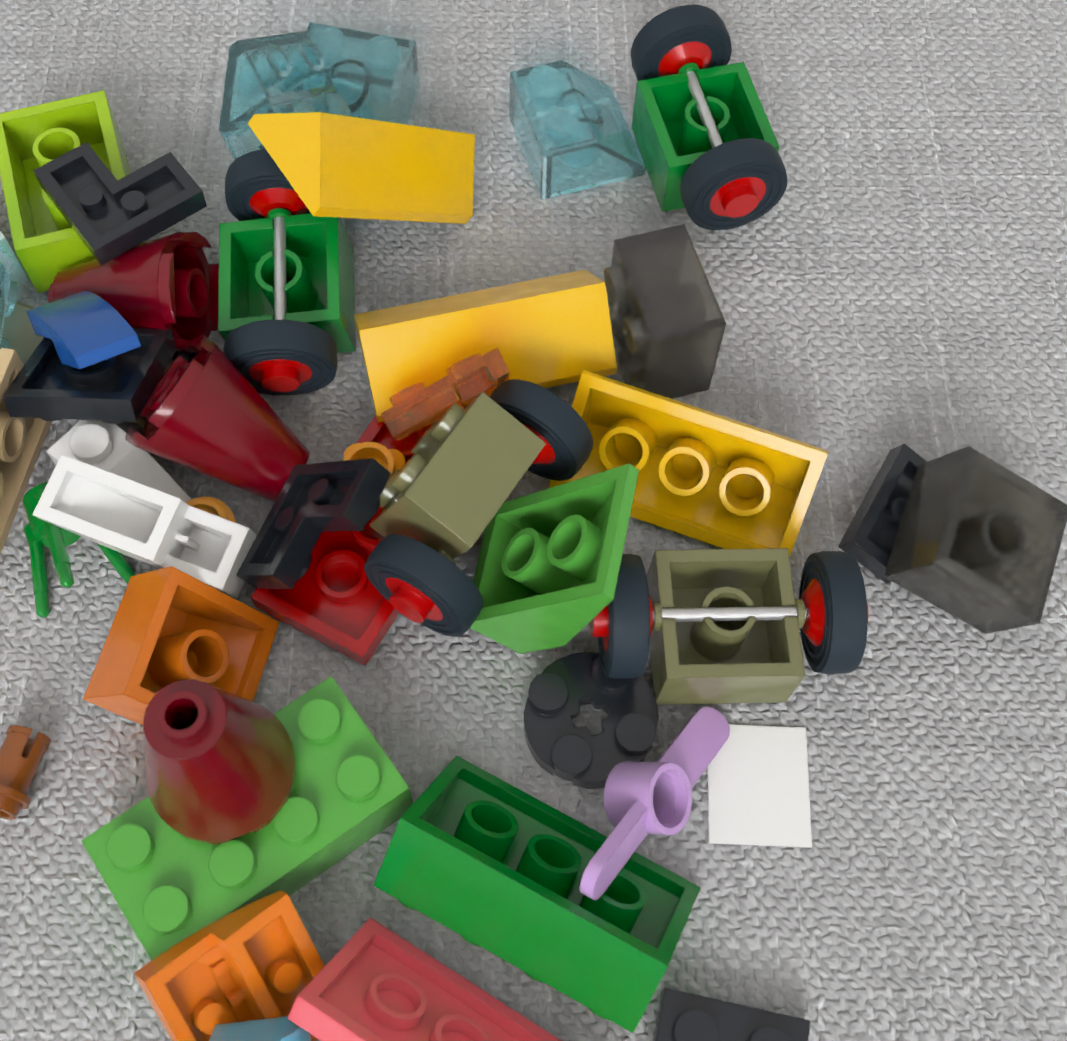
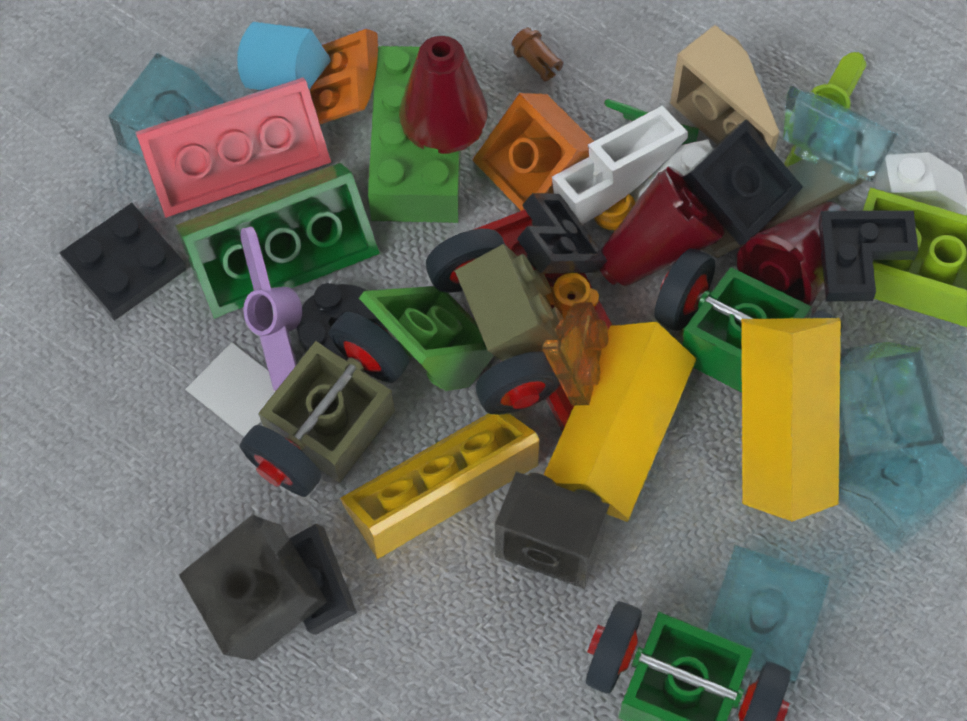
camera: 130 degrees right, 0 degrees up
(83, 329) = (769, 181): blue slope -> none

